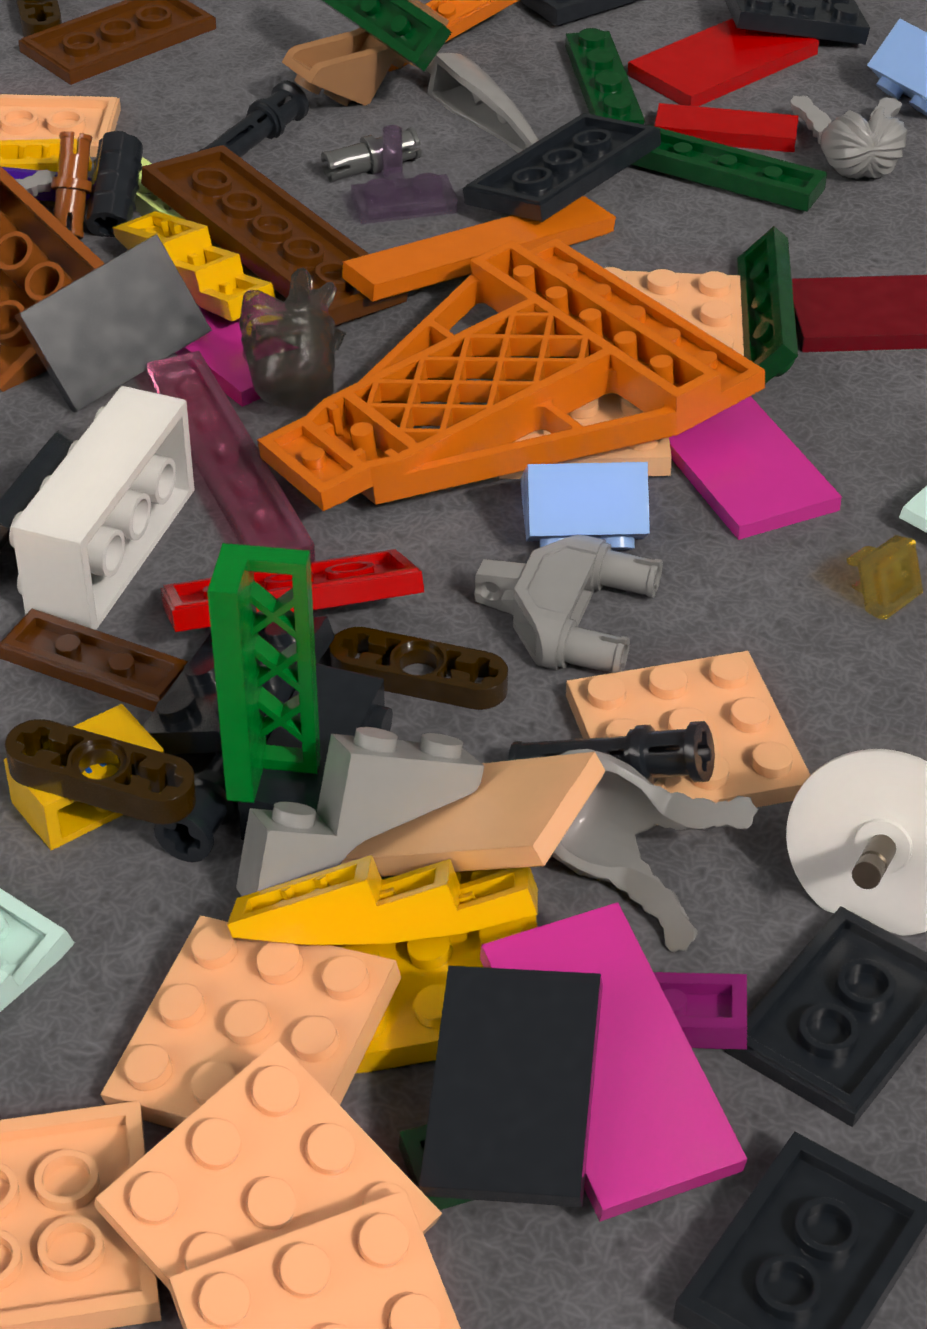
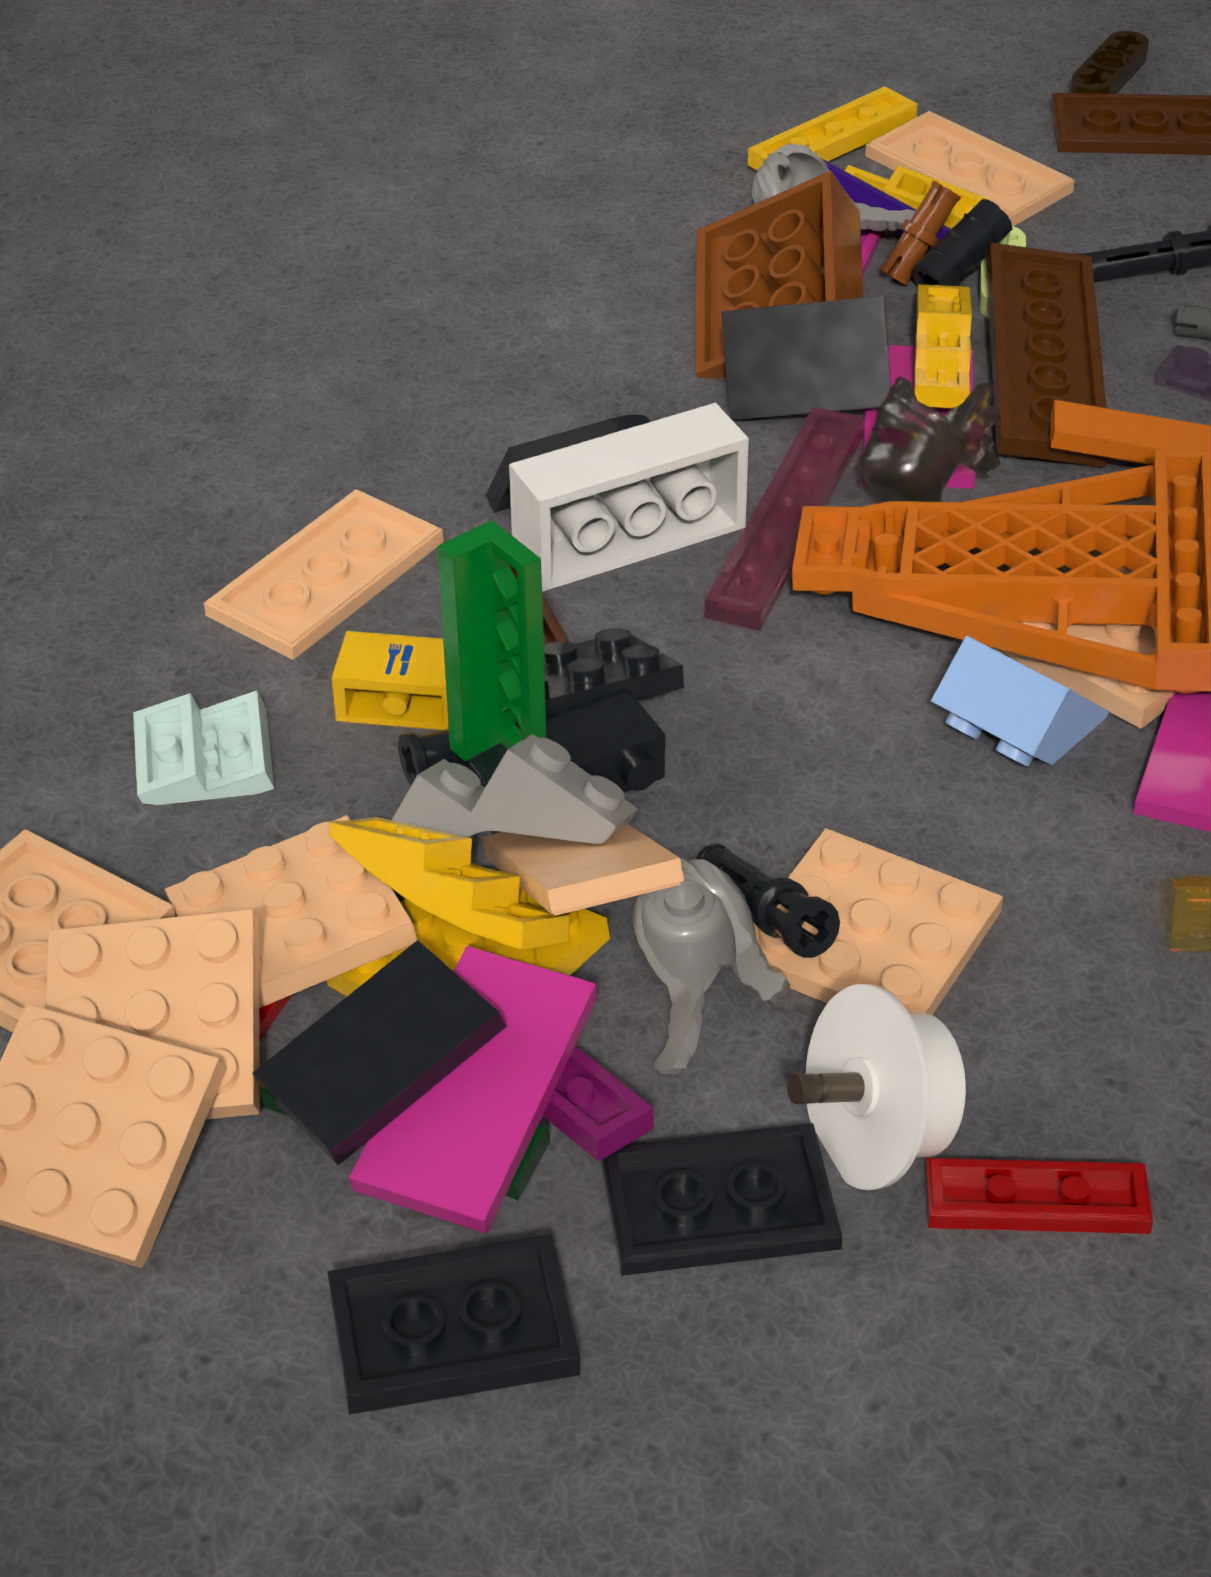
camera: 45 degrees right, 0 degrees up
(158, 795) = (385, 694): dark brown beam -> none
(333, 584) = (698, 635): red tile -> none
(404, 650) = (732, 731): dark brown beam -> none
(553, 593) = (906, 757): light grey connector -> none

